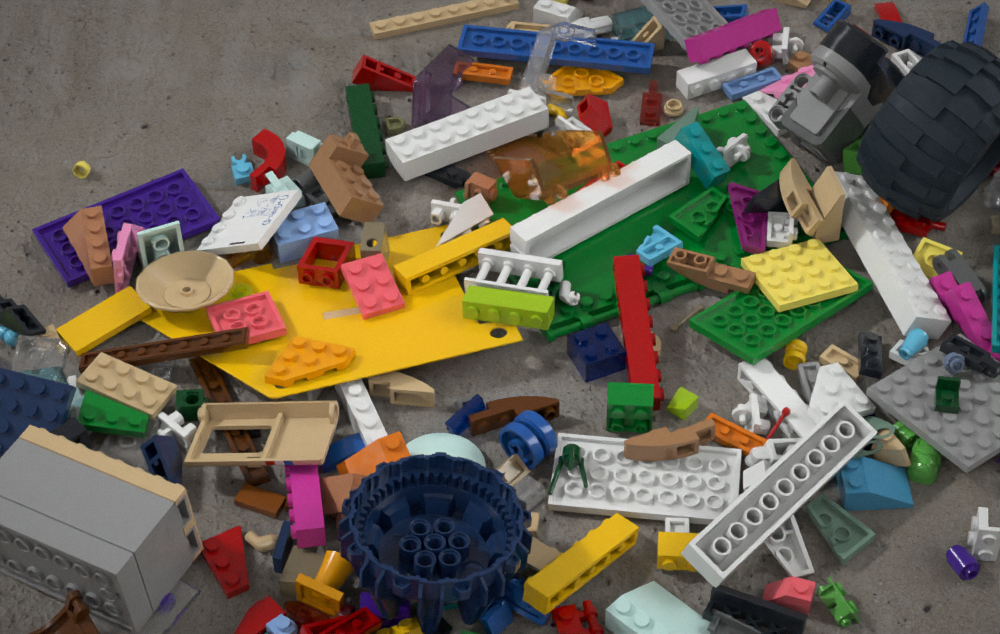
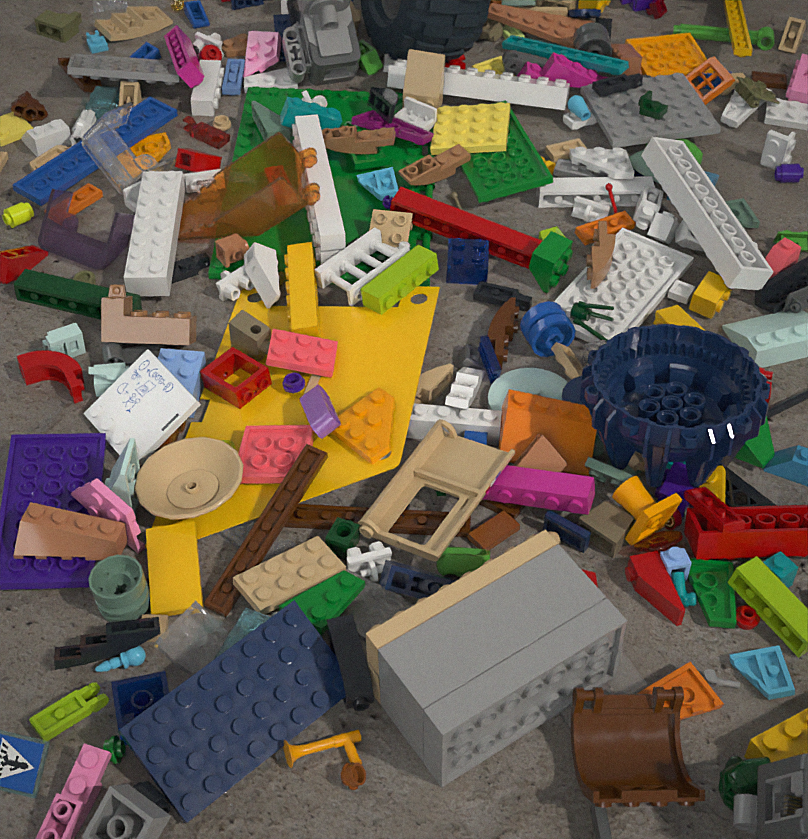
camera: 65 degrees left, 0 degrees up
(59, 296) = (119, 588): none -> sand green wheel
(208, 489) = (461, 560): none -> bright green piece
(241, 170) = (48, 399): medium azure plate -> none
(300, 323) = (320, 411): none -> medium lavender beam
(338, 298) = (293, 383): none -> dark purple plate
(421, 412) = (465, 387): none -> white slope
(437, 45) = (18, 214): none -> neon yellow brick
(568, 396) = (498, 295): none -> black hinge
(591, 278) = (392, 225): none -> tan hinge
(692, 197) = (350, 141): none -> medium nougat slope
(796, 197) = (406, 87): tan slope -> none
(870, 355) = (570, 132): black plate -> none
(954, 362) = (622, 92): sand blue plate -> none

